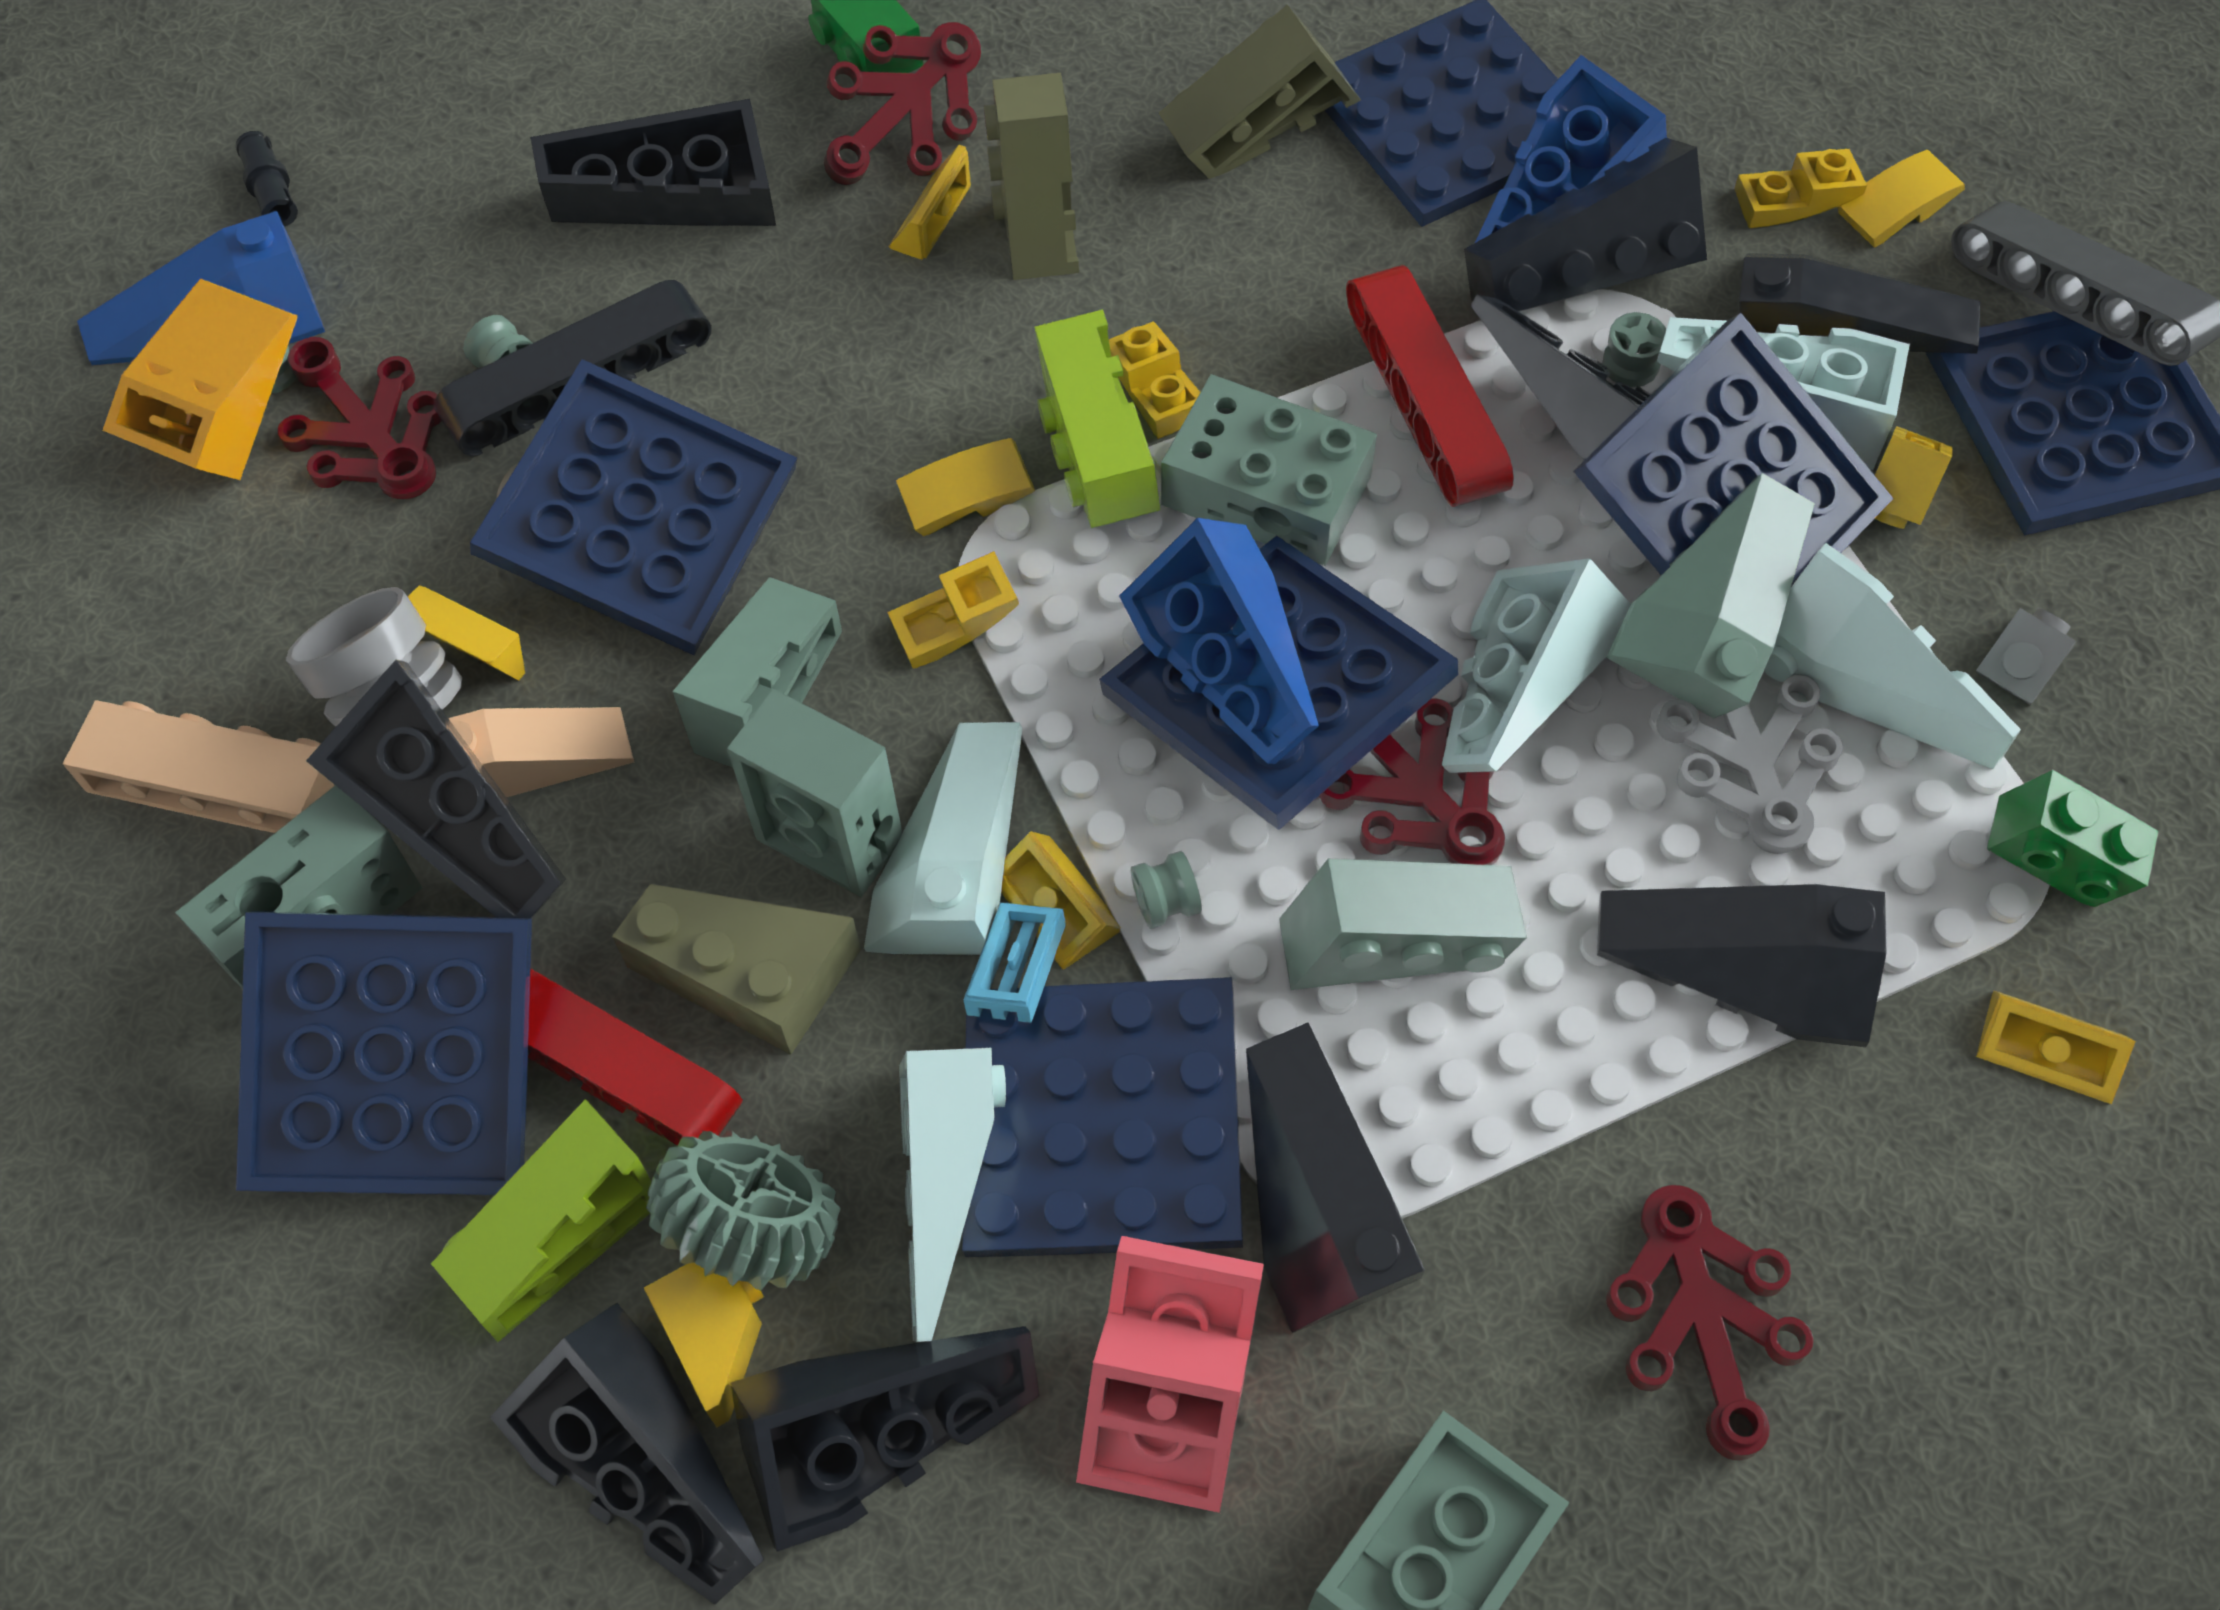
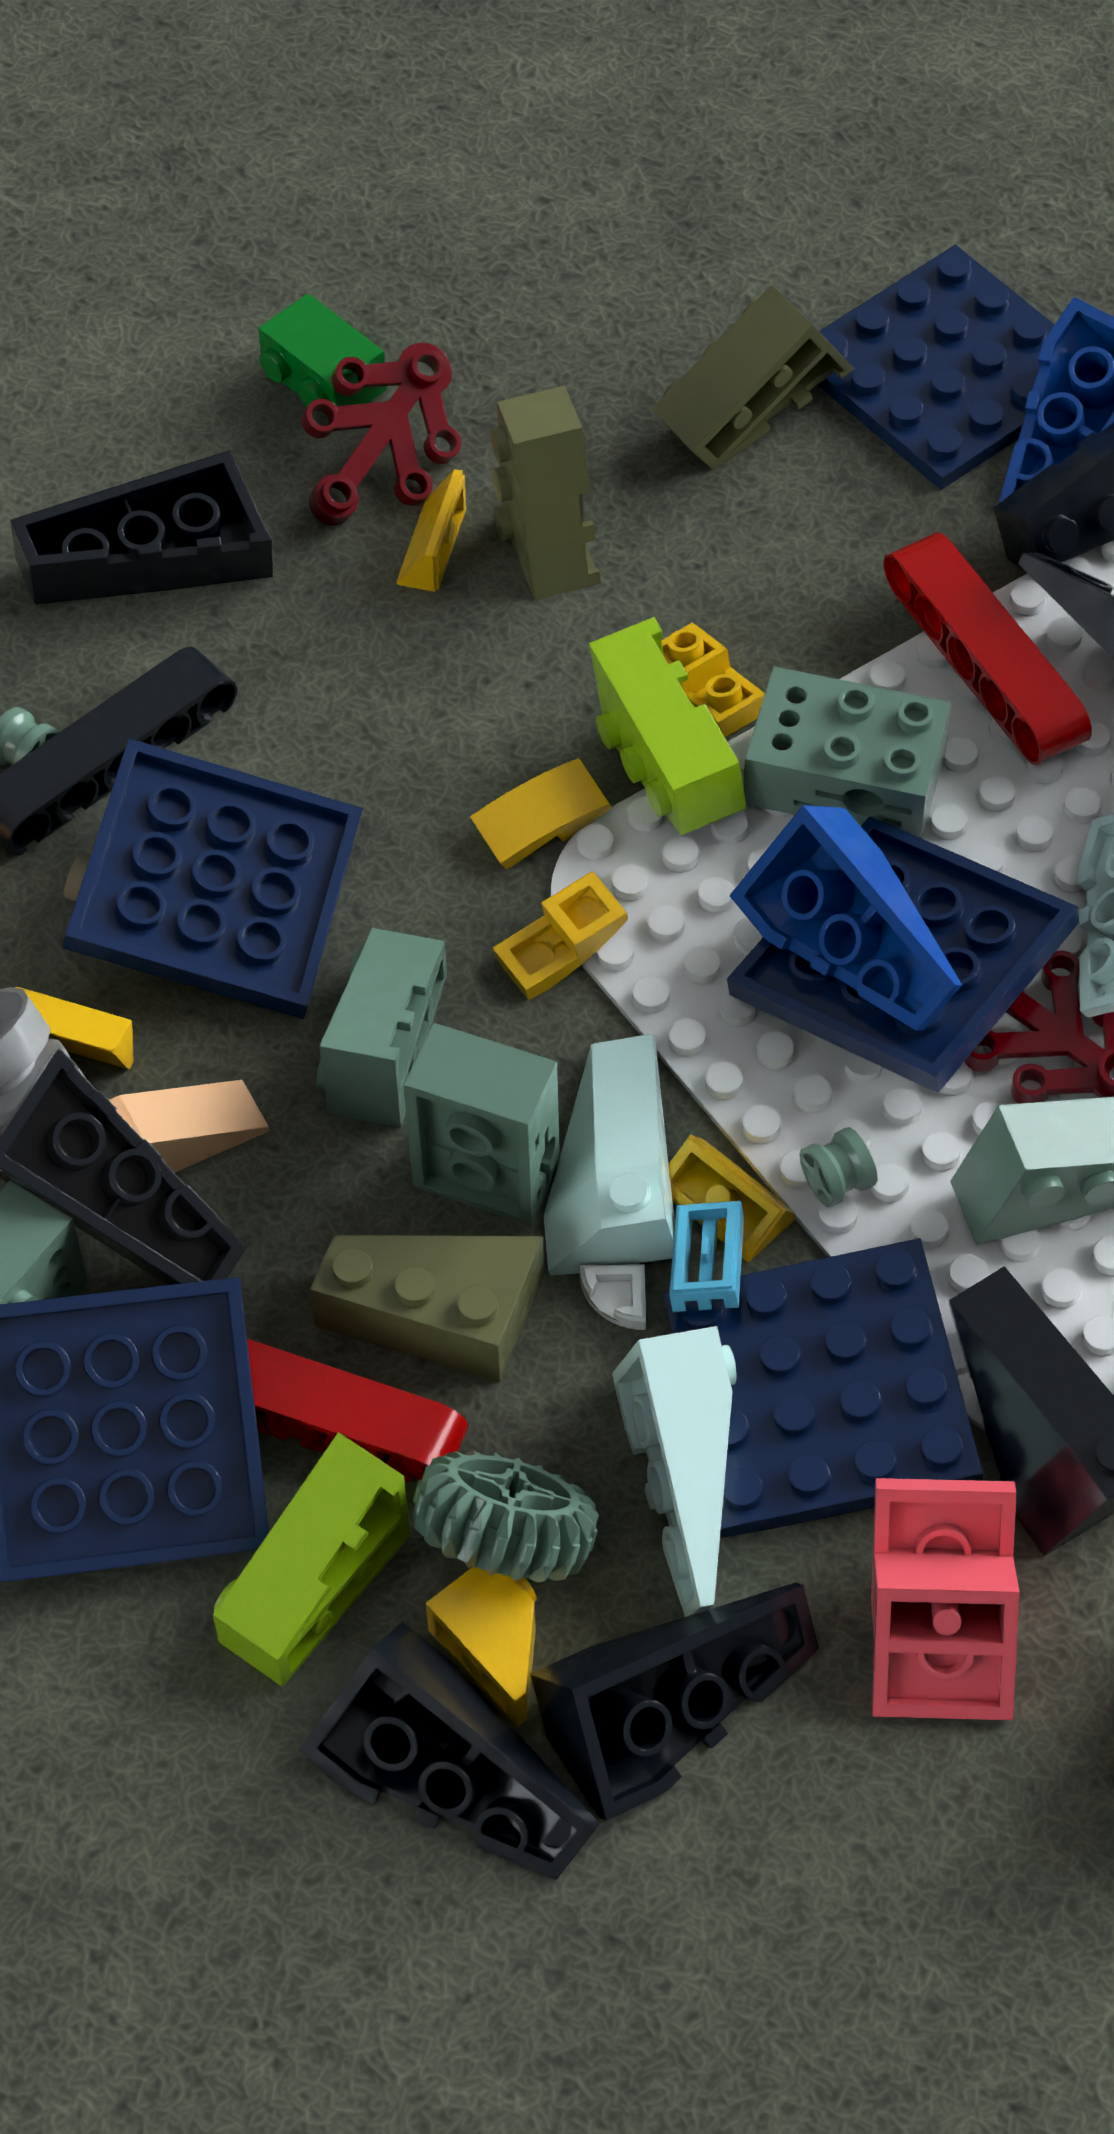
camera: 10 degrees left, 5 degrees down
(926, 981) = (616, 1292): none -> white tile

